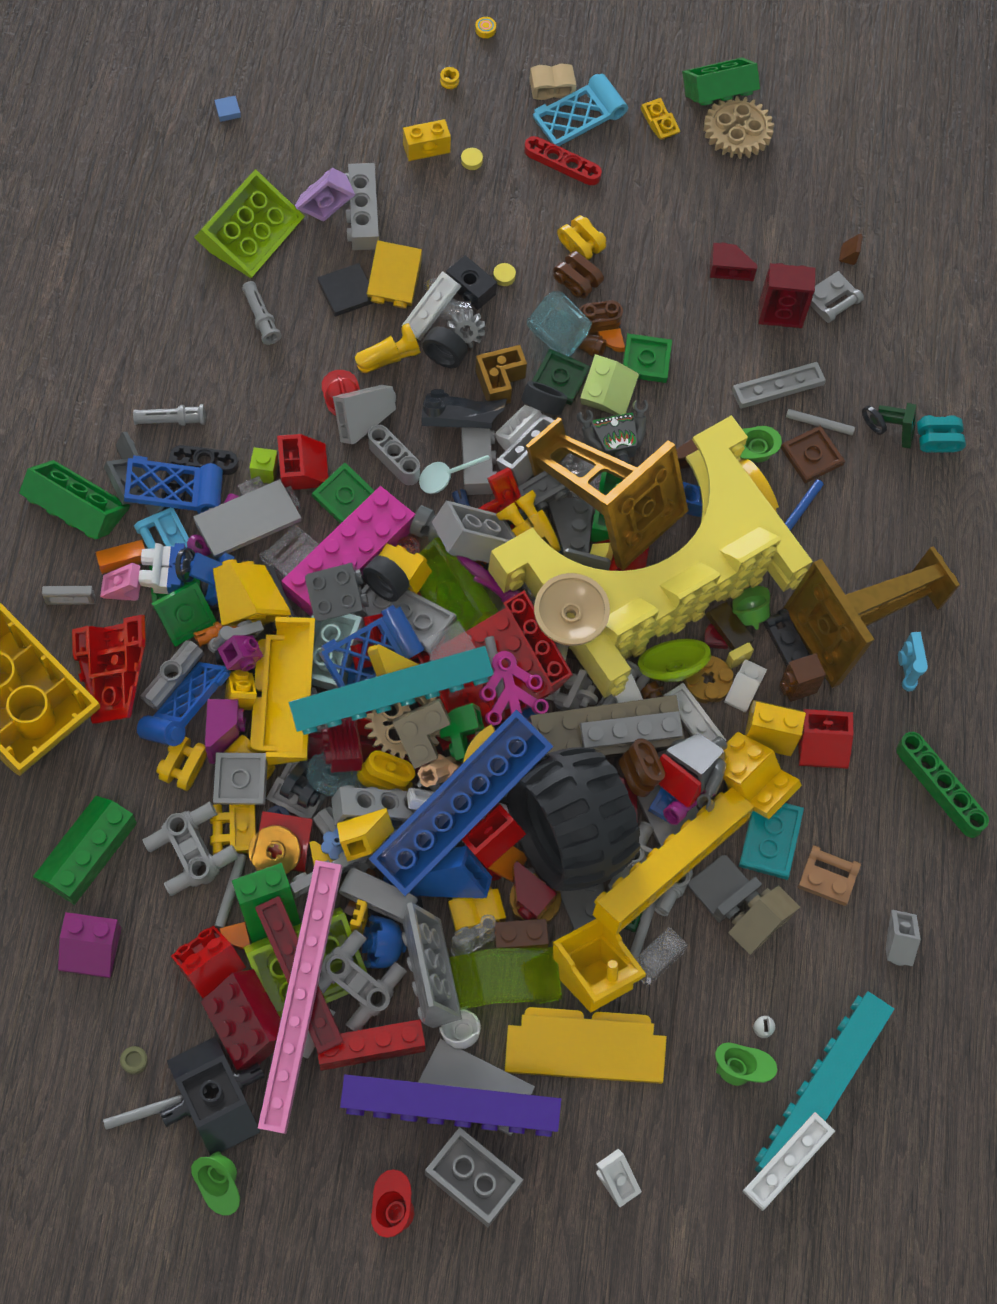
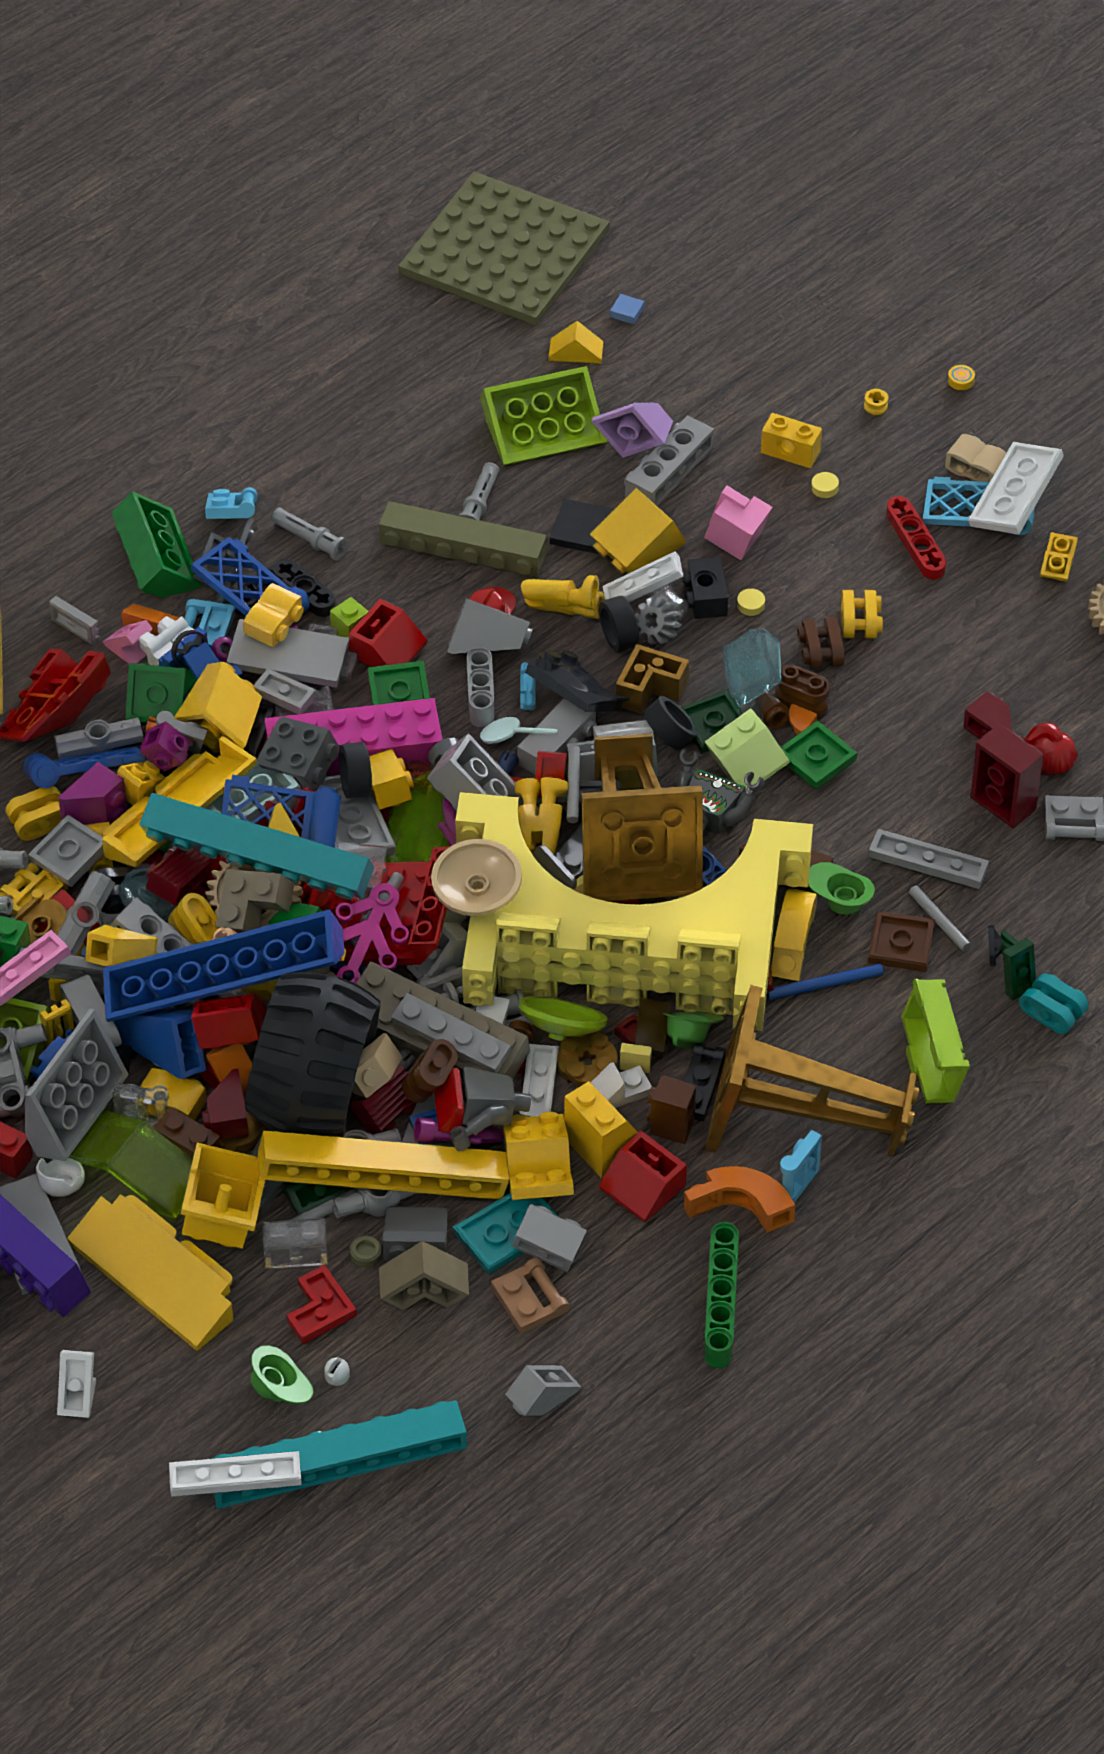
camera: 45 degrees right, 15 degrees down
(95, 437) = (225, 505): none -> medium azure plate
(101, 113) = (504, 248): none -> olive plate
(219, 157) = (576, 345): none -> yellow slope
(219, 498) = (272, 615): none -> yellow brick
(273, 550) = (285, 691): none -> light grey plate
(279, 351) = (463, 539): none -> olive brick
(304, 811) = (91, 900): none -> light grey piece
(421, 432) = (527, 689): none -> medium azure axle
(452, 223) = (737, 522): none -> bright pink plate
(532, 485) = (573, 786): none -> light grey bar
(601, 86) = (1015, 488): none -> white tile
(701, 924) = (365, 1251): none -> olive tile
(719, 984) = (326, 1309): none -> red plate
(778, 252) = (1056, 746): none -> red hair
(811, 827) = (549, 1237): none -> light grey brick
(896, 695) = (746, 1189): none -> orange arch
(898, 523) = (934, 1041): none -> lime piece

